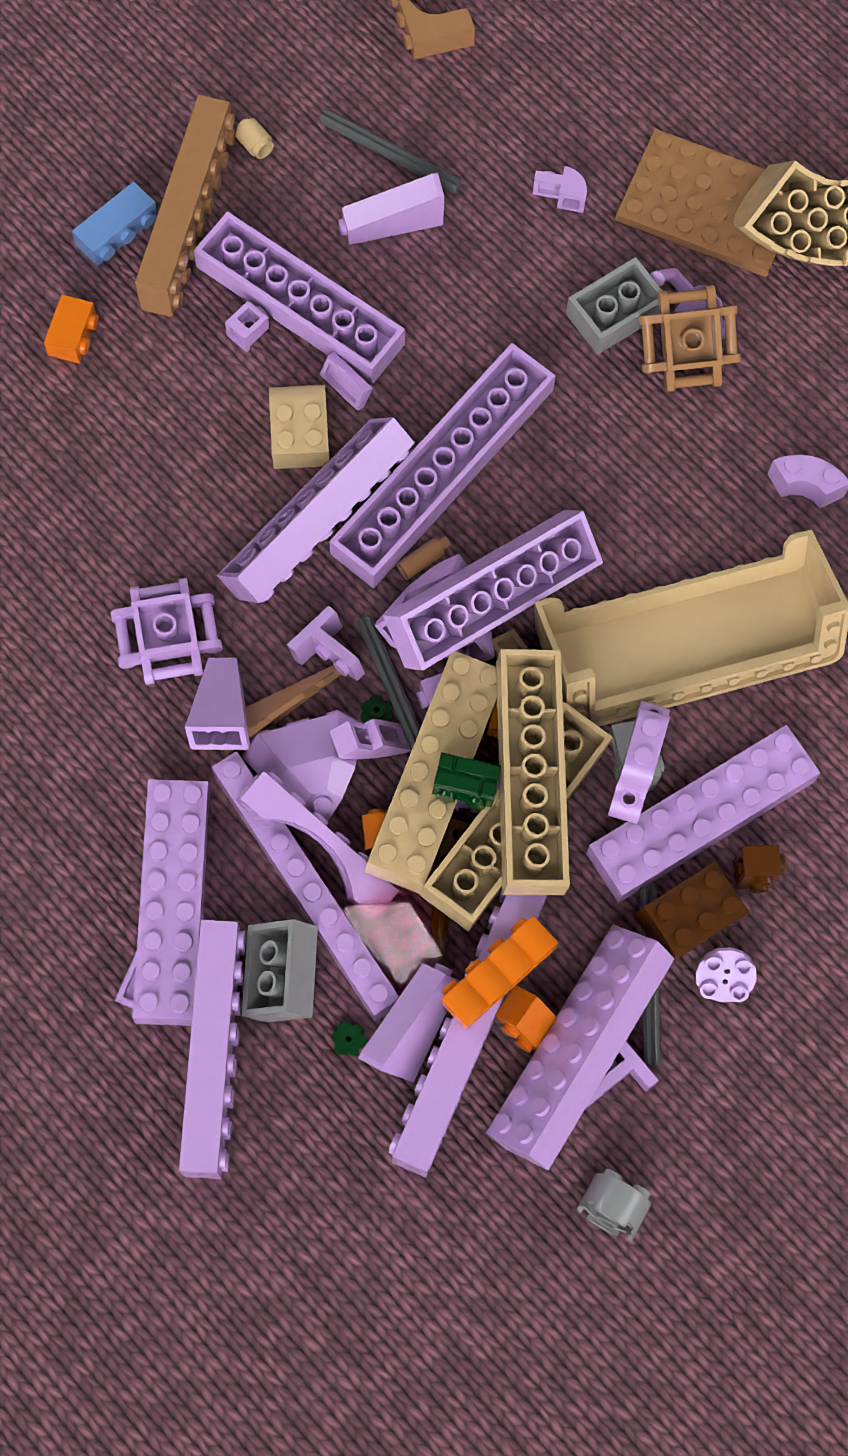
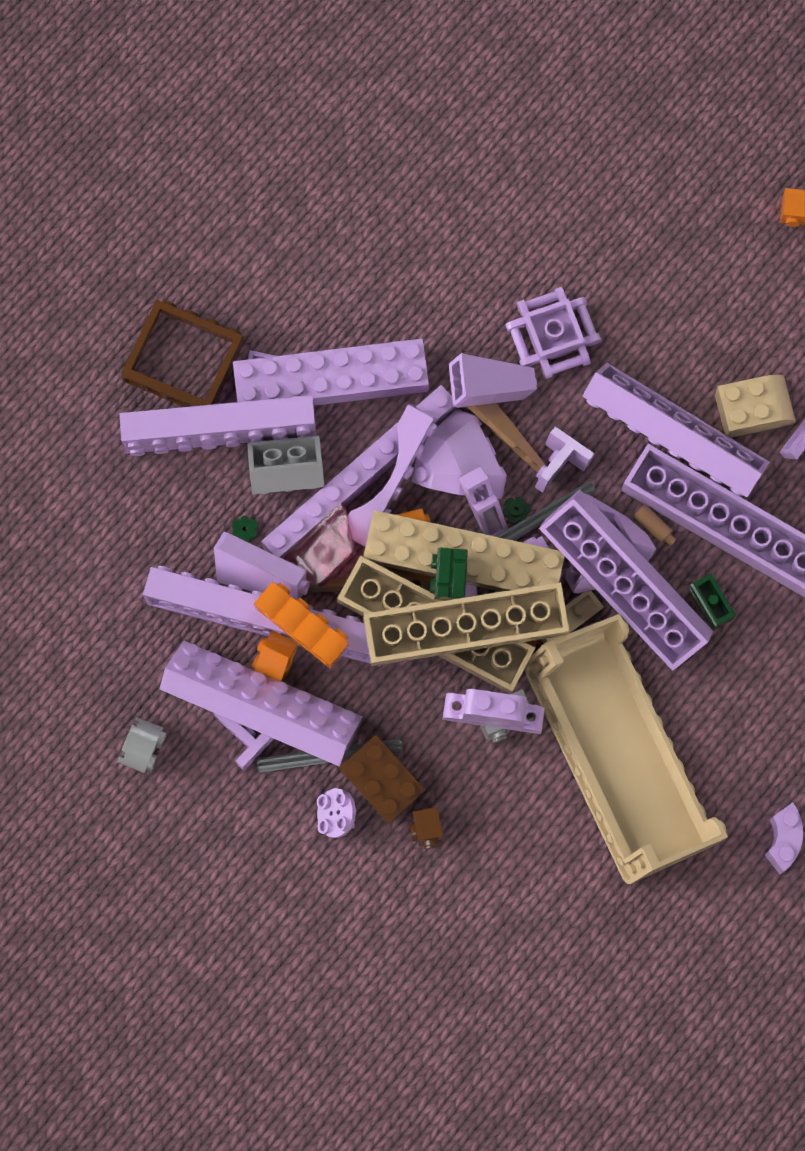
camera: 85 degrees right, 5 degrees up
(151, 1112) = (164, 390): none -> reddish brown window
(527, 508) = (711, 602): none -> dark green brick
(702, 813) = (469, 781): lavender brick -> none

